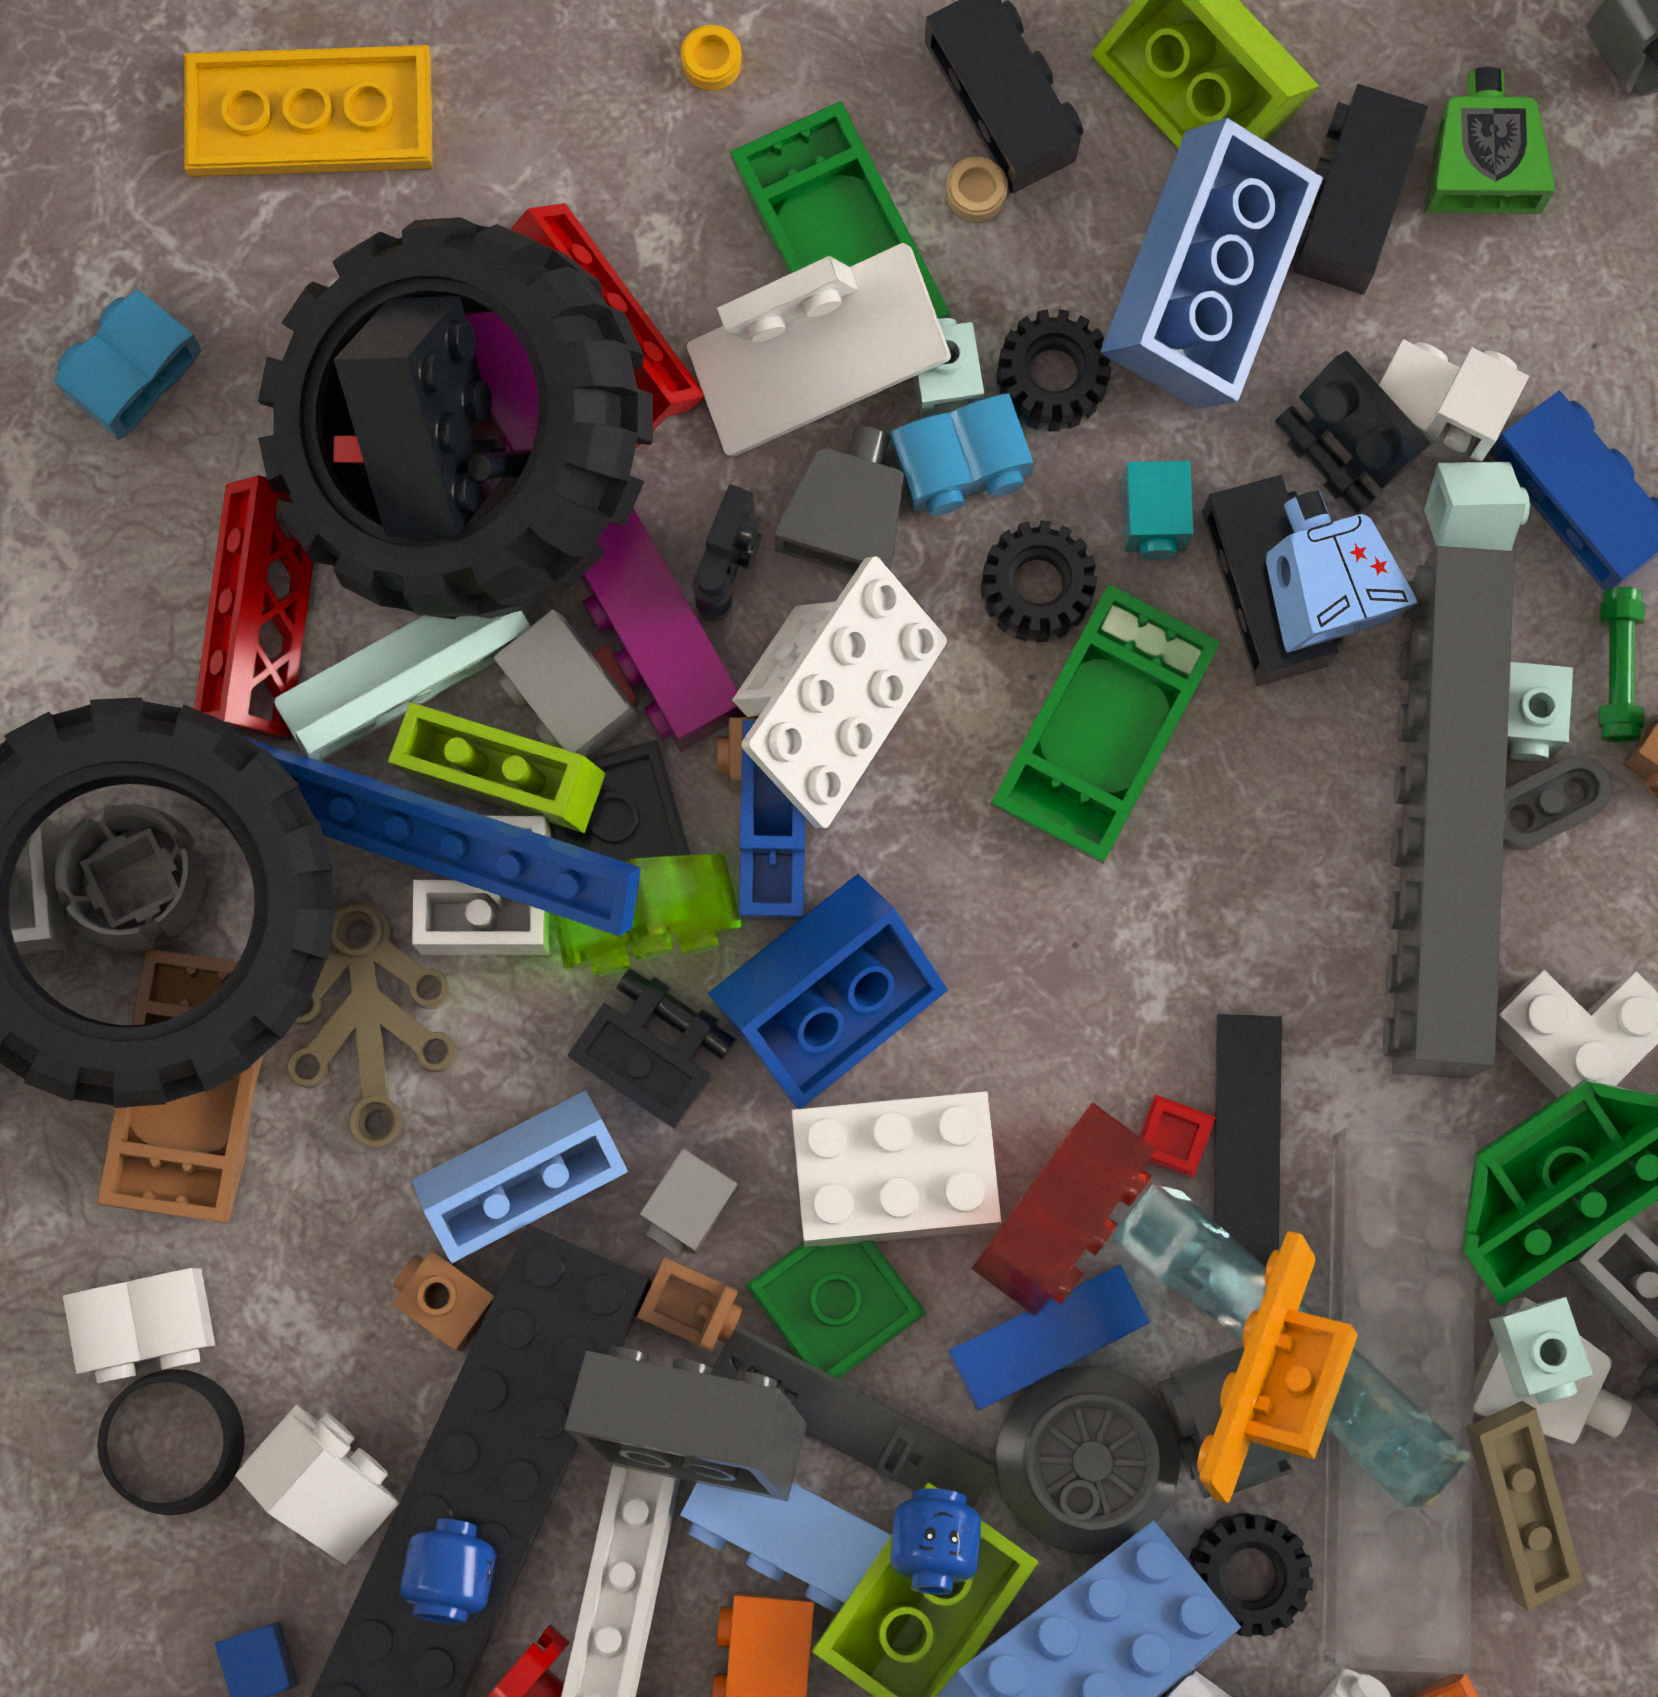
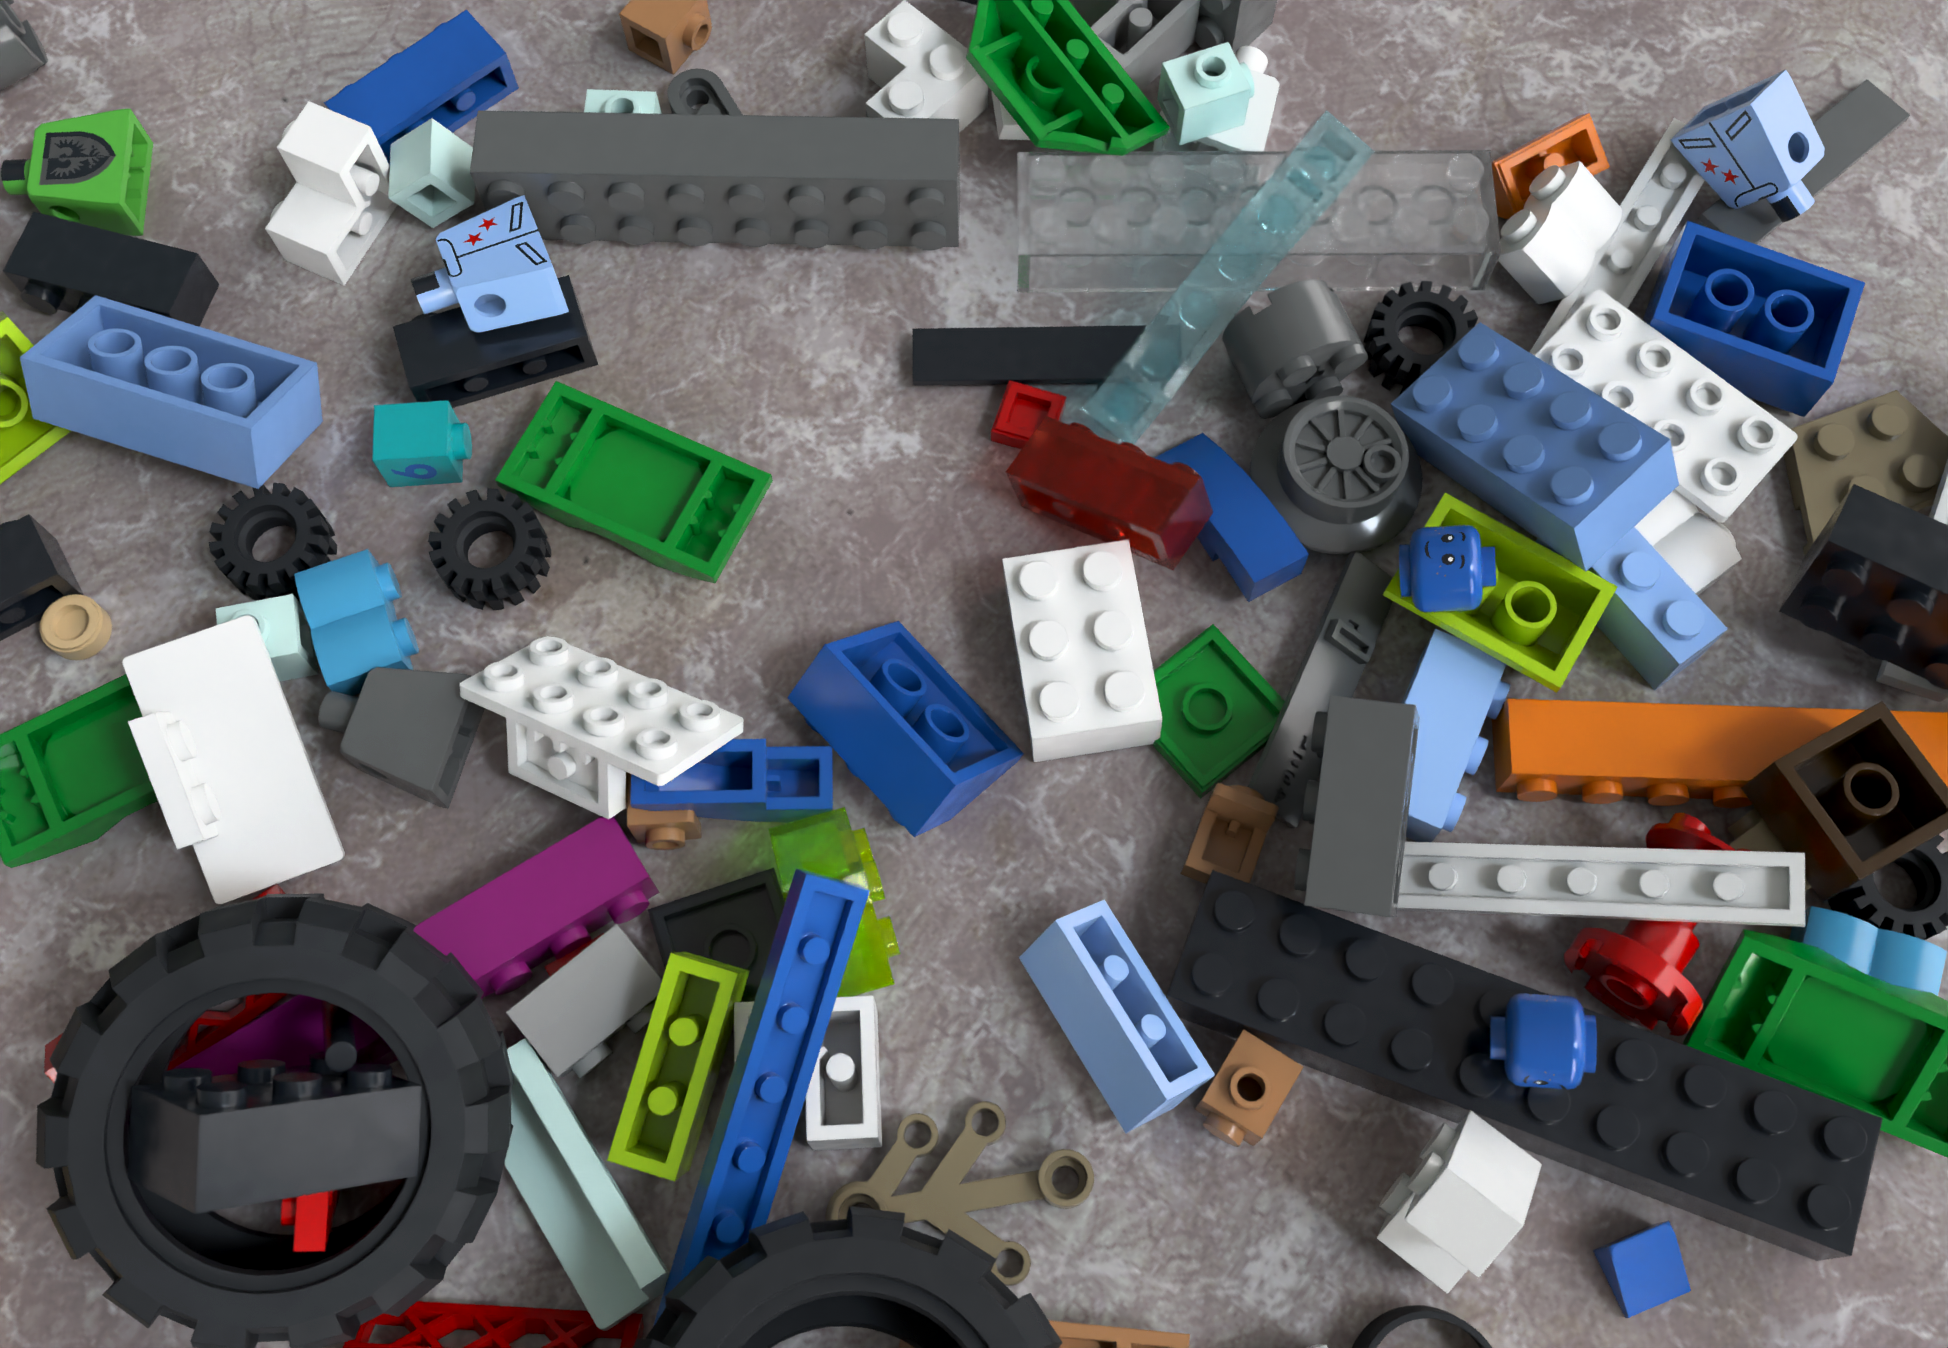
camera: 90 degrees left, 10 degrees down
(640, 1064) = (986, 908): black plate -> none
(687, 1203) = (1127, 848): light grey brick -> none
(729, 544) = (430, 832): black plate -> none
(1284, 1376) = (1262, 264): light orange bracket -> none
(1362, 421) = (341, 262): black plate -> none
(1524, 1505) = (1371, 114): dark tan plate -> none
(1621, 611) = (535, 69): green bar -> none

